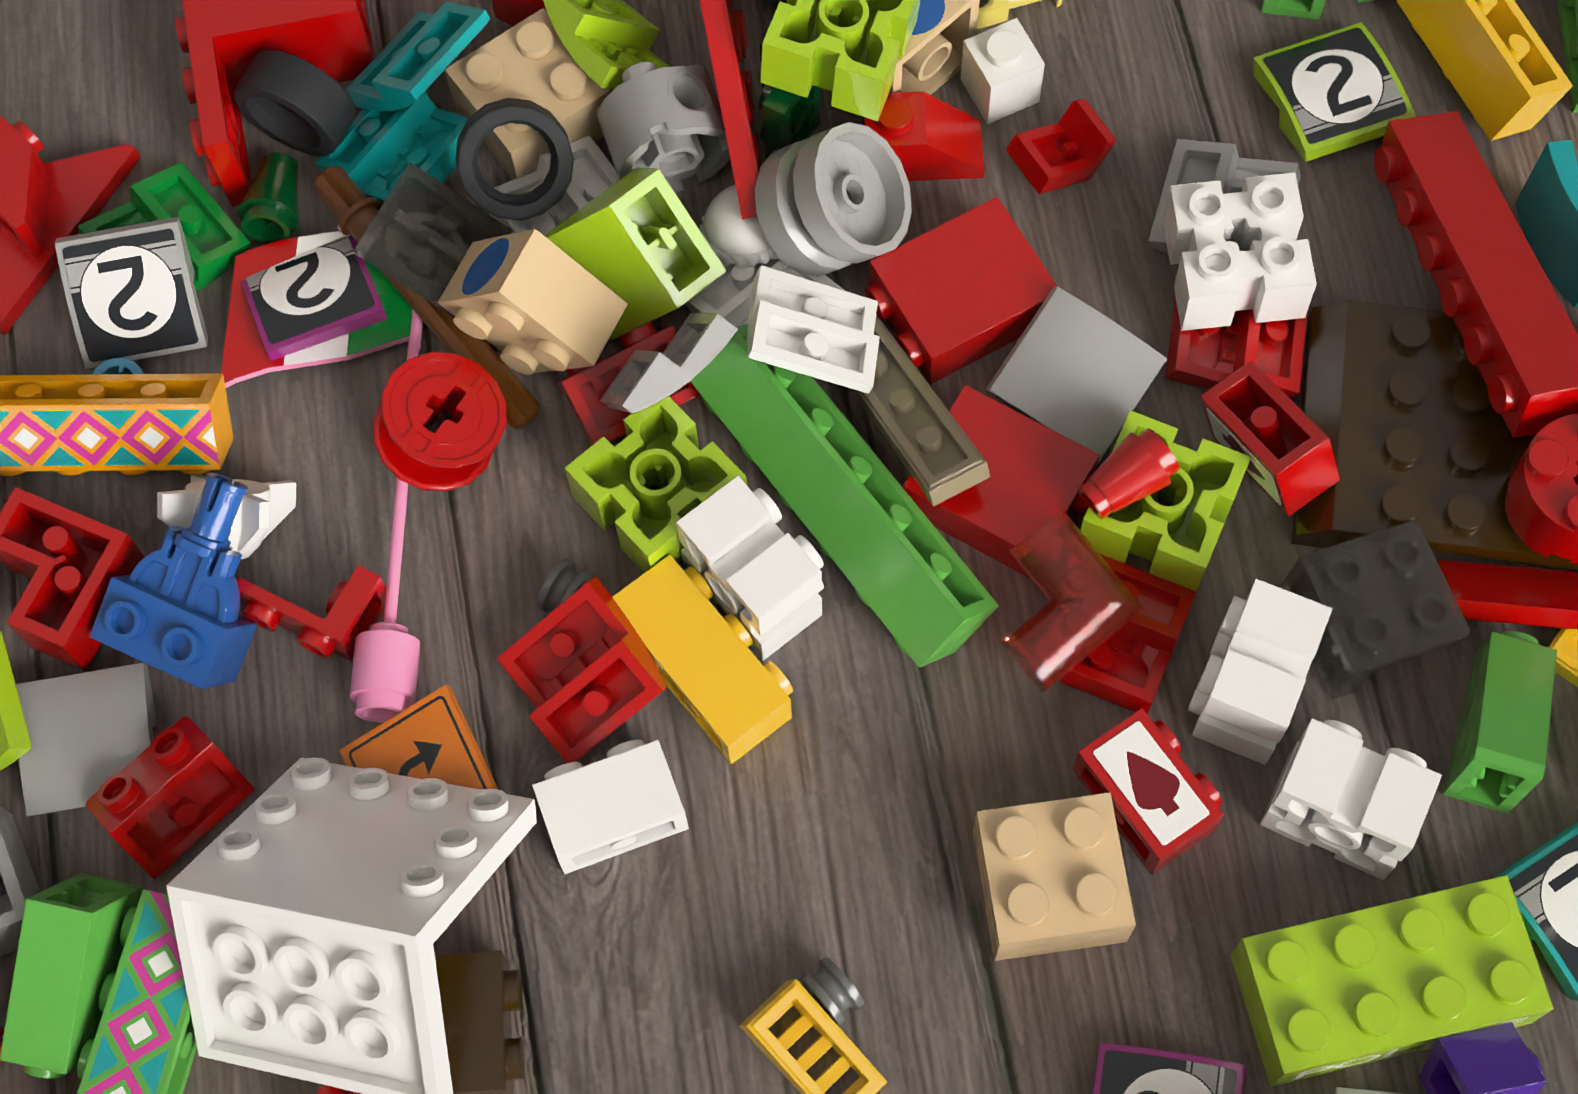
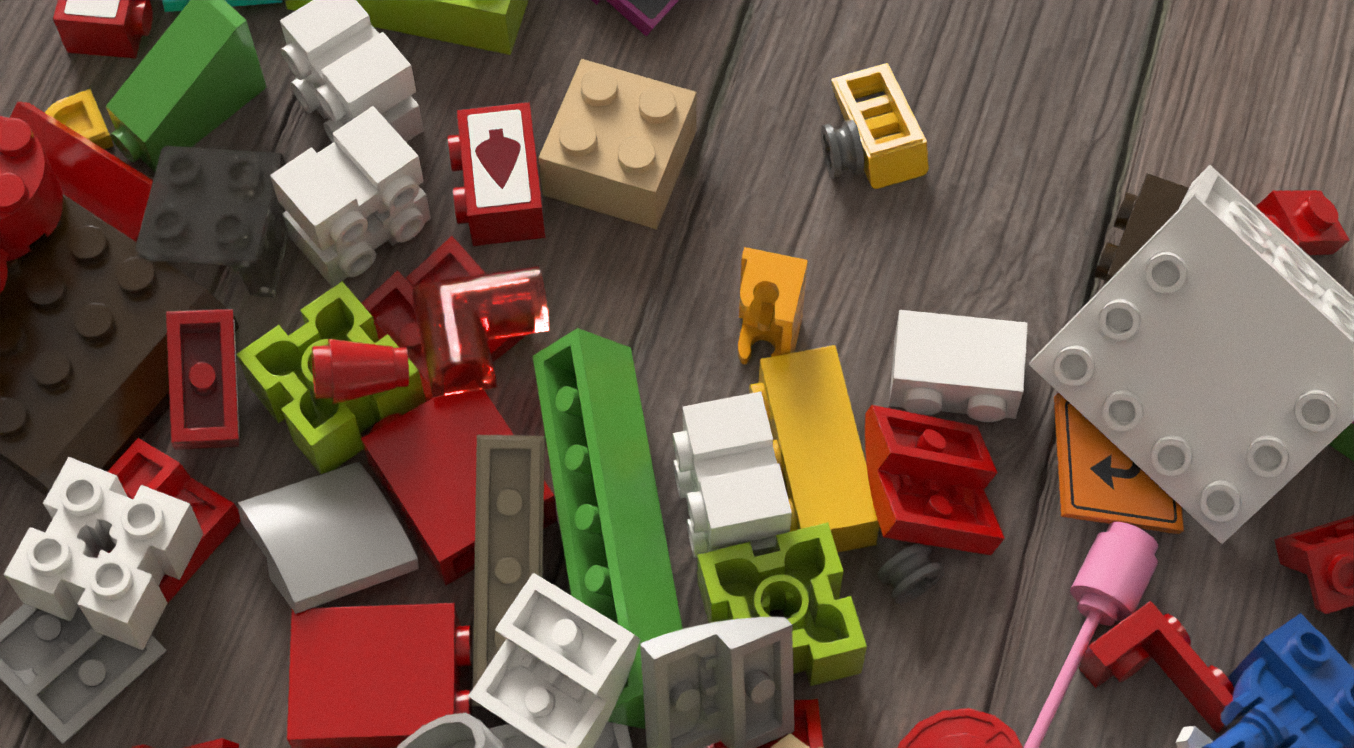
camera: 155 degrees left, 5 degrees down
(806, 760) = (770, 301): none -> light orange hinge

